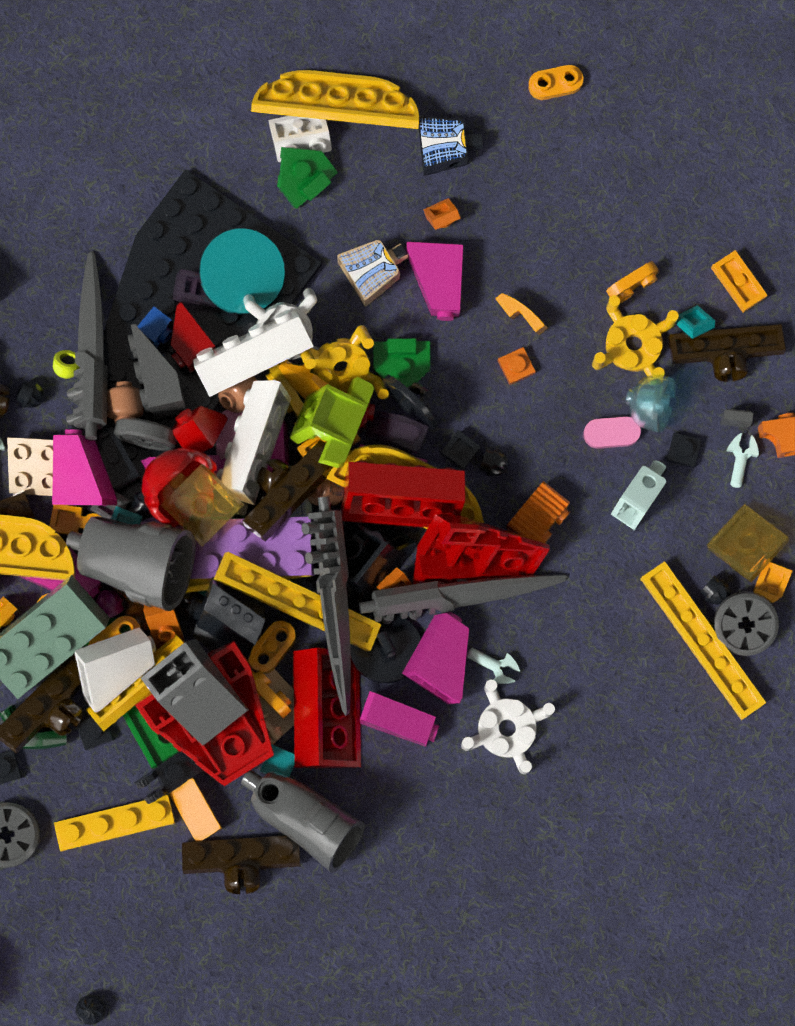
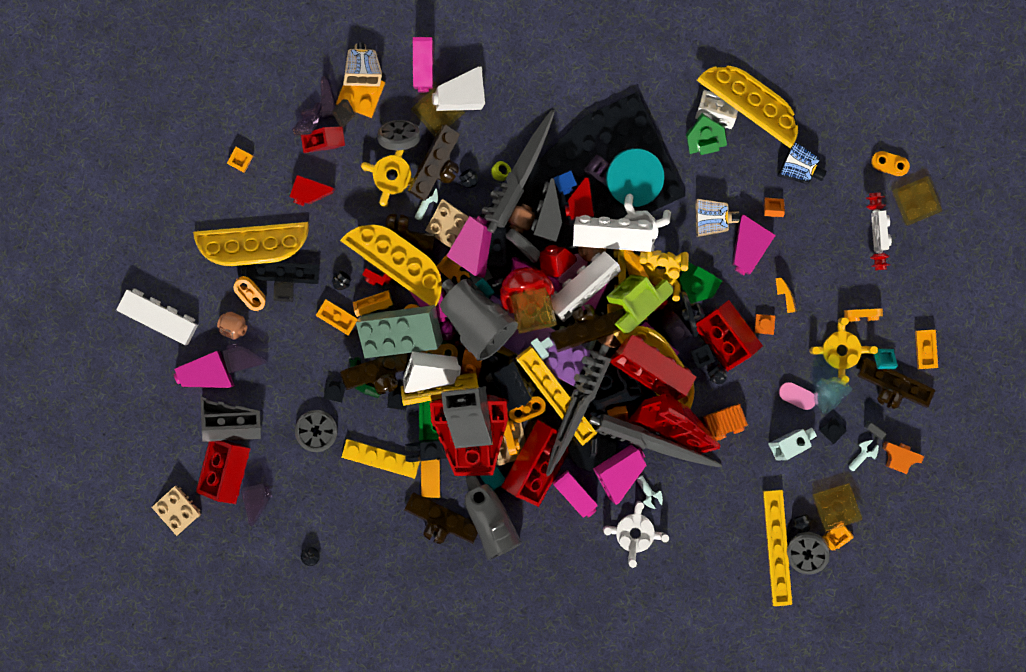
camera: 30 degrees right, 10 degrees up
(242, 545) = (541, 348): none -> light aqua tile
(478, 405) = (728, 335): none -> red slope
(595, 171) = (881, 238): none -> plate
(616, 109) = (917, 201): none -> clear yellow plate

